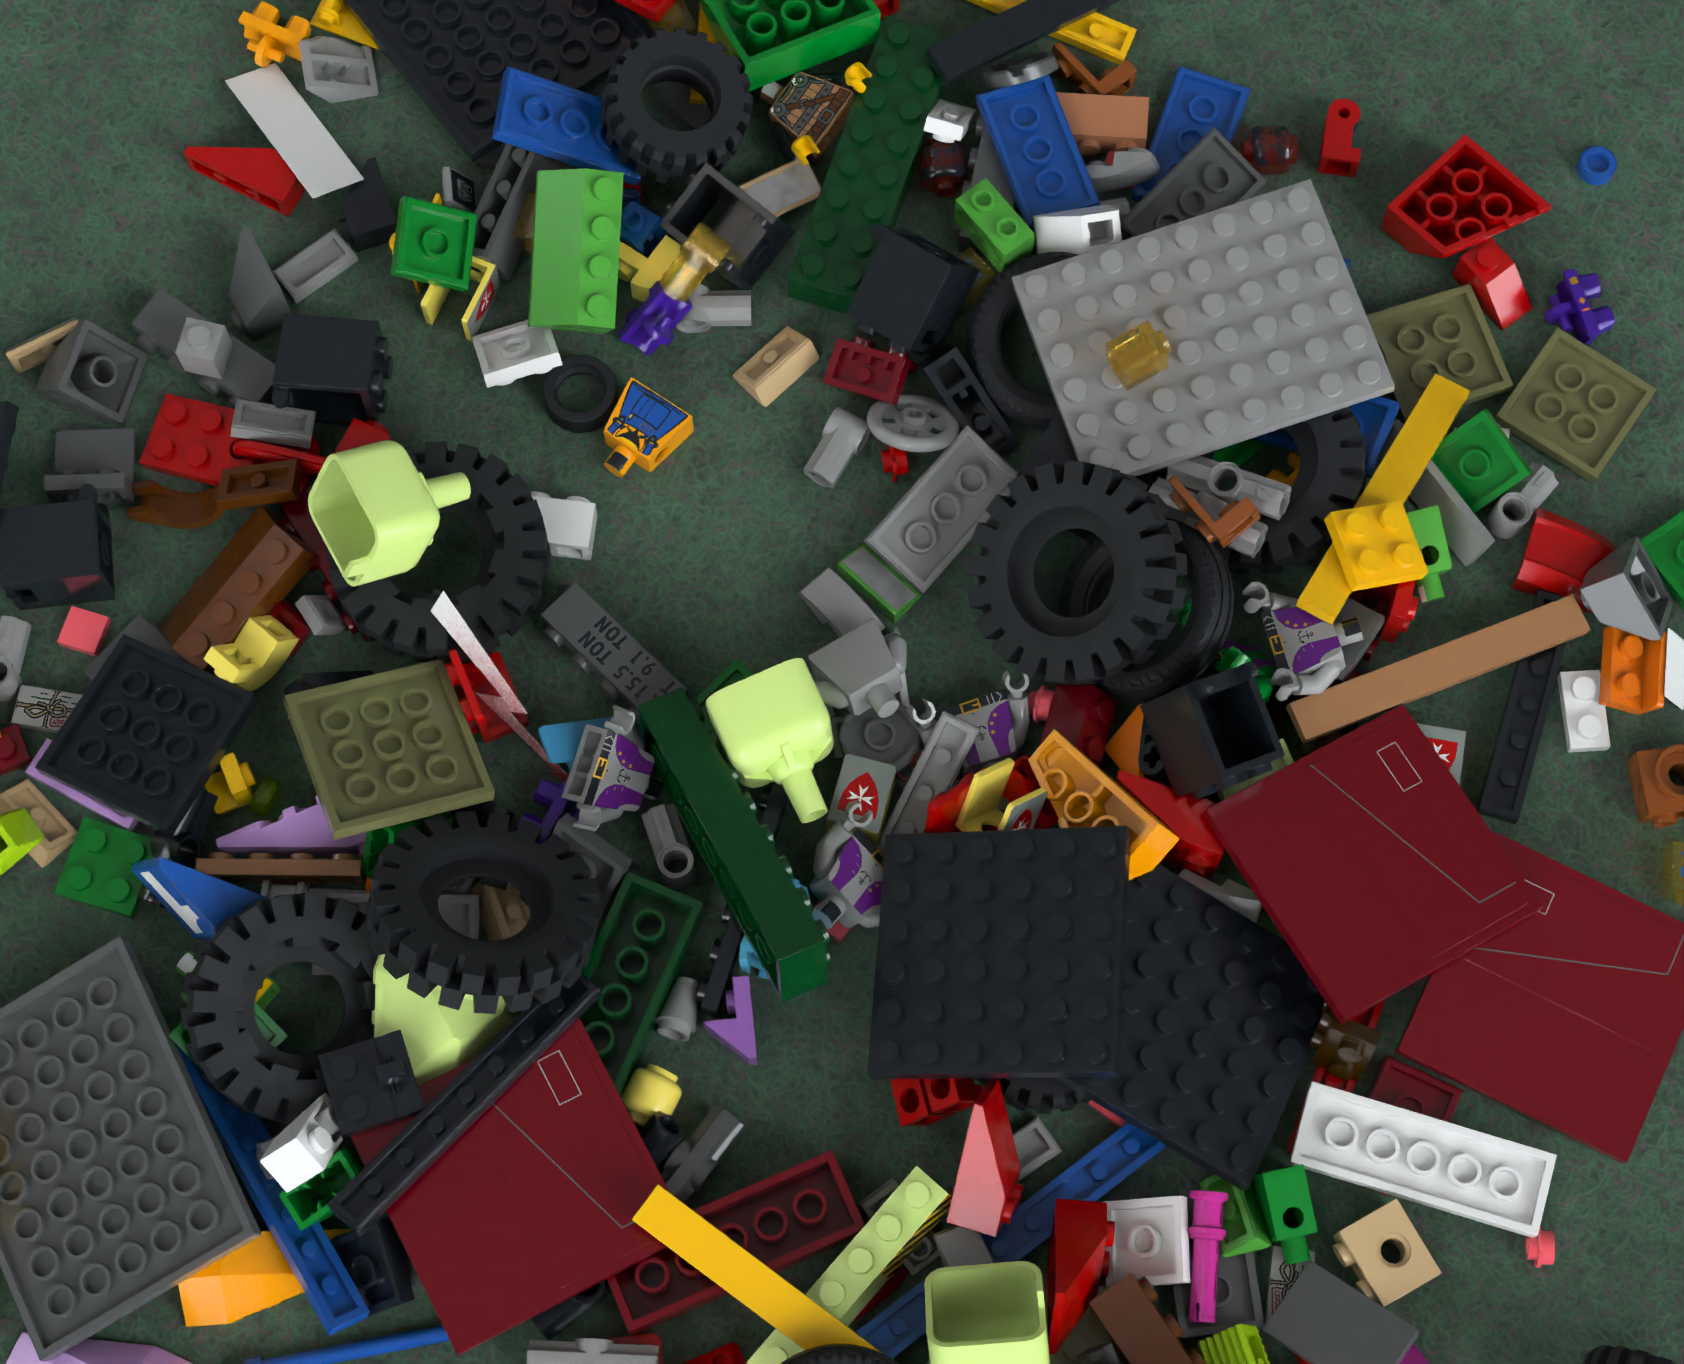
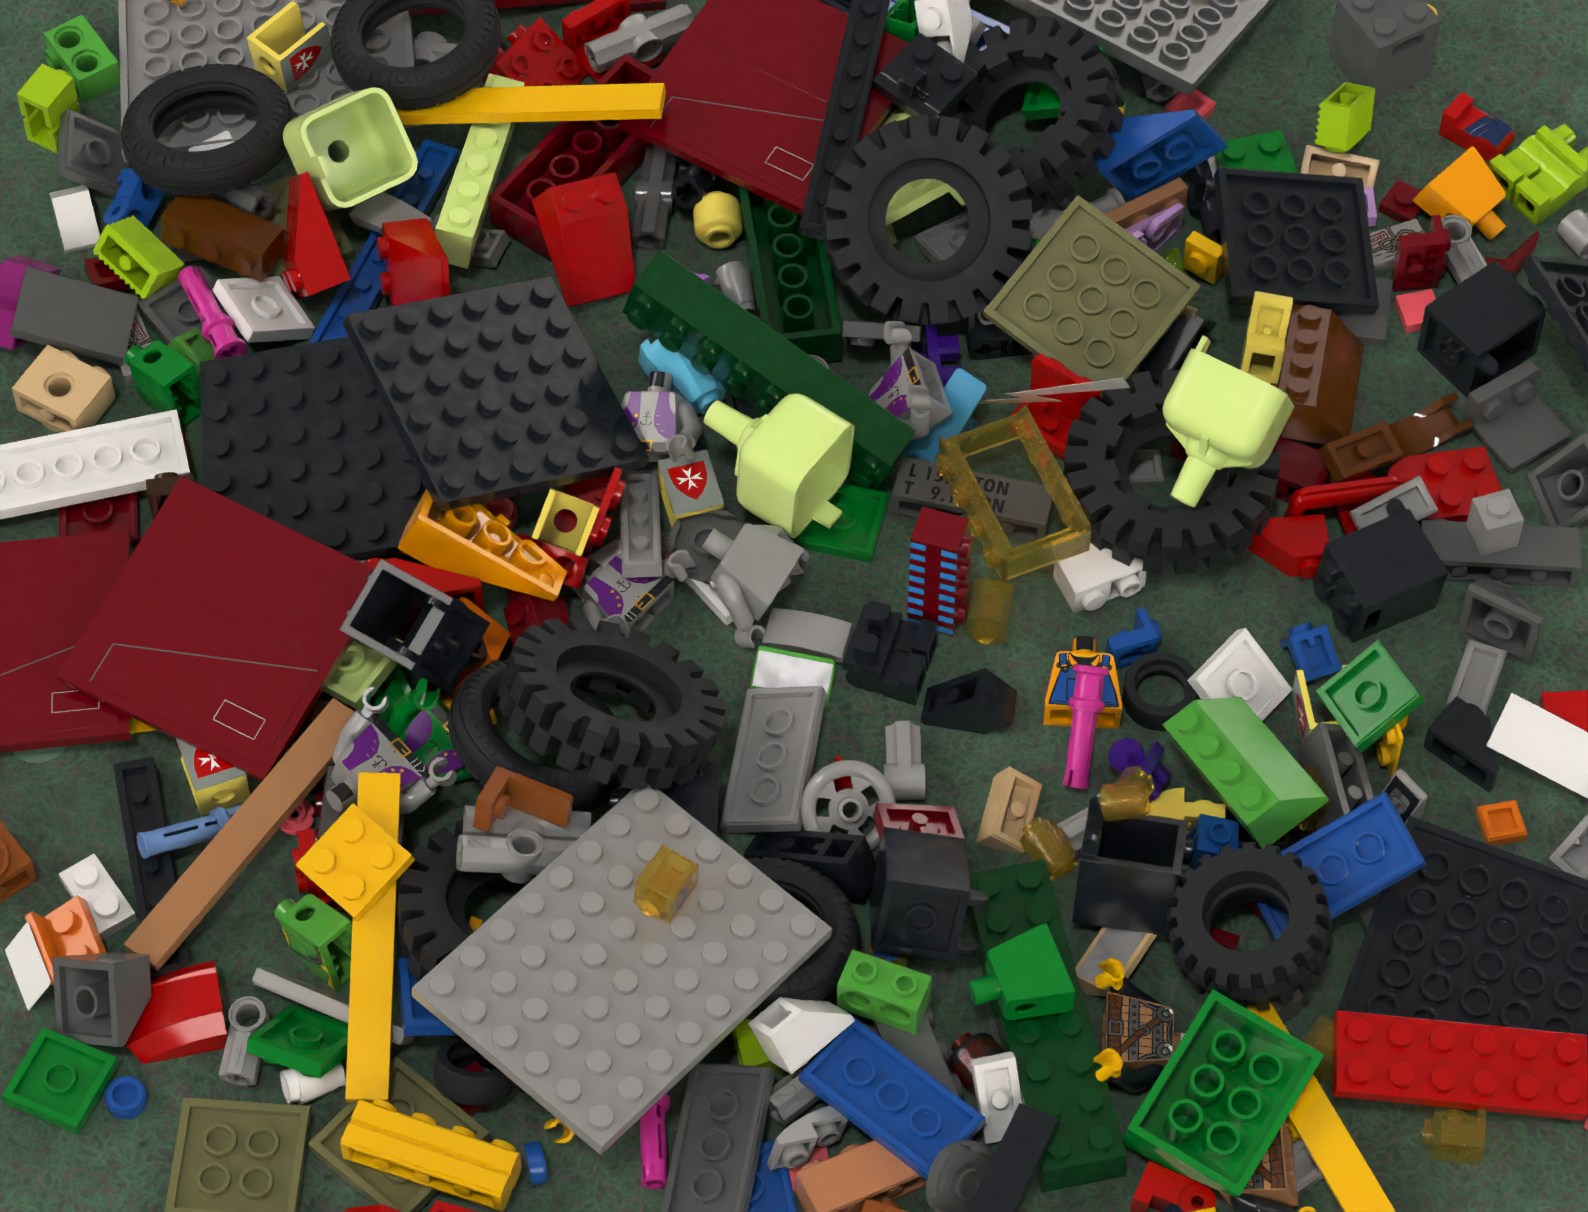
camera: 150 degrees right, 15 degrees down
(37, 651) = (1421, 258): none -> dark red bracket
(392, 139) = (1501, 823): none -> orange tile
(431, 359) = (1312, 651): none -> blue bracket
(576, 442) = (1130, 645): none -> blue bracket
(628, 632) = (982, 521): none -> clear yellow window
(663, 384) = (1086, 706): none -> dark pink pin
(672, 542) = (990, 610): none -> clear yellow brick
(711, 553) = (939, 570): none -> dark red brick
(749, 467) = (970, 703): none -> black slope
(770, 305) = (1047, 842): none -> clear yellow brick
(781, 549) = (890, 653): none -> black hips
(796, 1128) = (588, 238): none -> red slope
(878, 168) = (1025, 977): none -> green torso
(1424, 306) = (431, 1154): none -> yellow brick
(1453, 707) = (184, 833): none -> medium blue pin
(1639, 516) = (126, 1097): none -> blue tile

